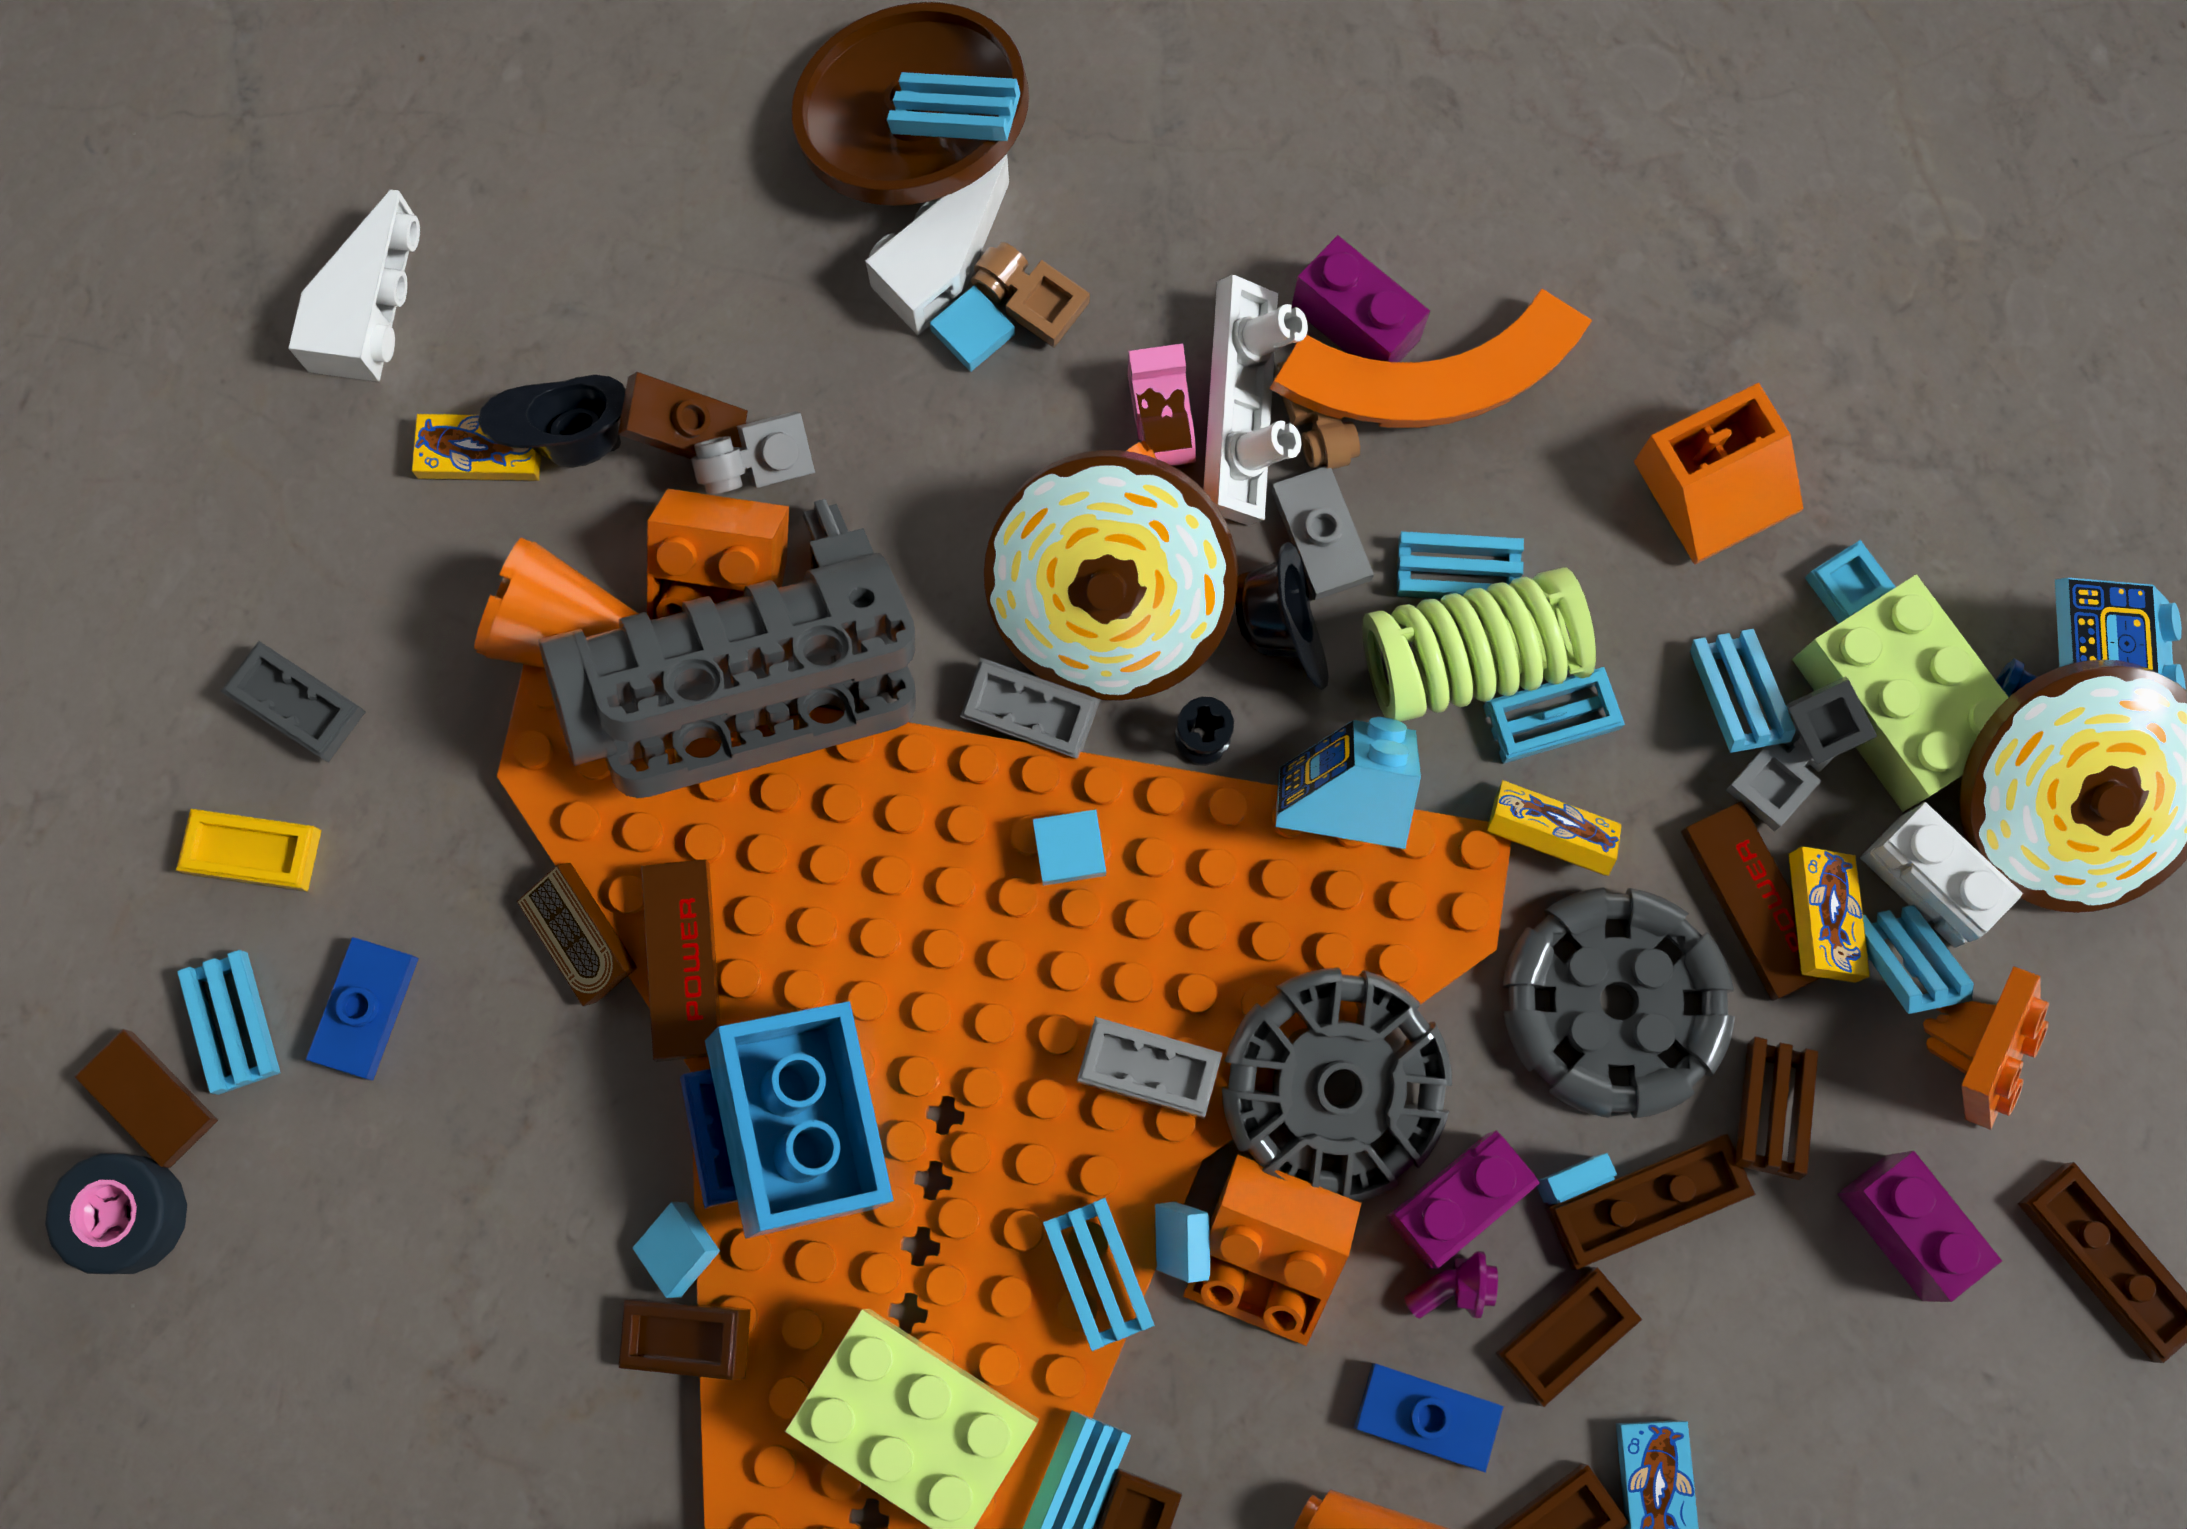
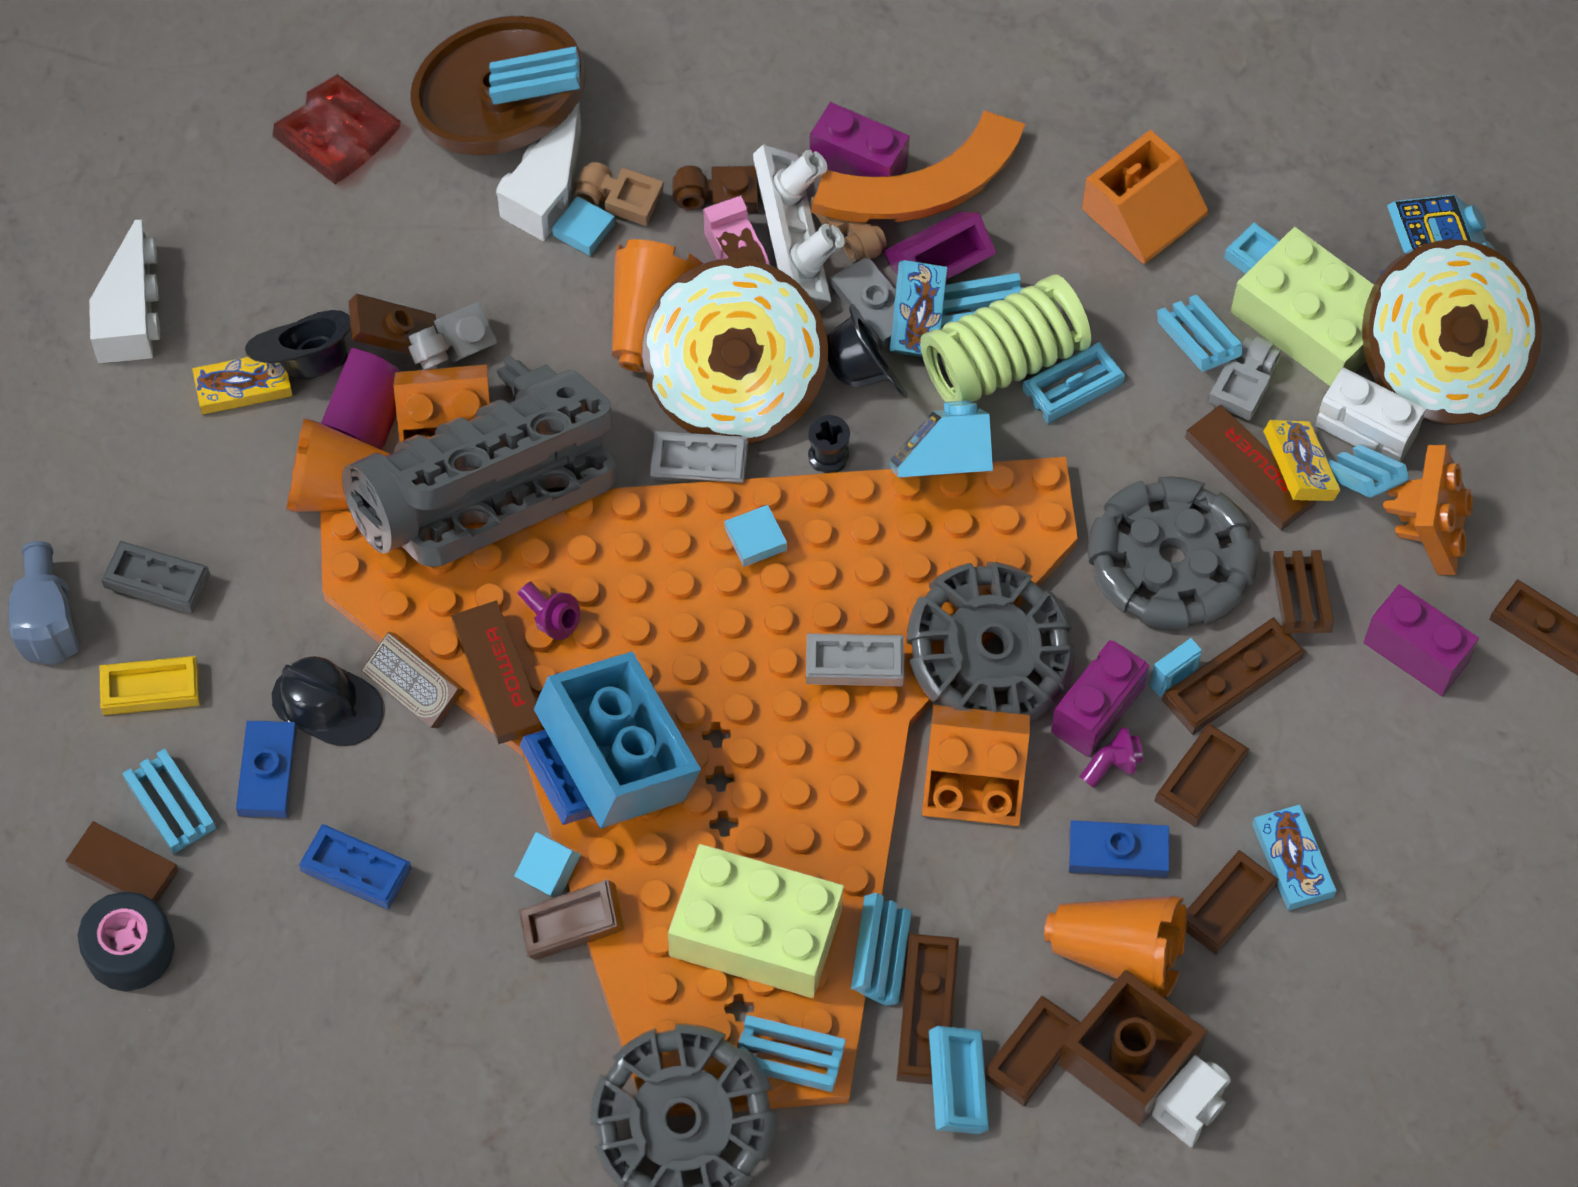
camera: 15 degrees left, 15 degrees down
(124, 715) = (41, 610): none -> sand blue piece
(434, 1182) = (355, 866): none -> blue plate
(466, 931) = (327, 701): none -> black piece
(608, 524) = (363, 399): none -> magenta brick
(693, 111) = (336, 129): none -> clear red slope
(777, 901) = (555, 616): none -> magenta plate
(1016, 442) = (640, 278): none -> orange cone
(1077, 1219) = (834, 771): medium azure tile -> none
(1174, 319) = (693, 188): none -> reddish brown plate
(1182, 1241) = (910, 767): medium azure tile -> none
(1374, 561) = (916, 305): none -> tile
(1428, 481) = (952, 243): none -> magenta brick
(1555, 828) = (1095, 450): yellow tile -> none
(1831, 720) = (1263, 330): dark grey plate -> none

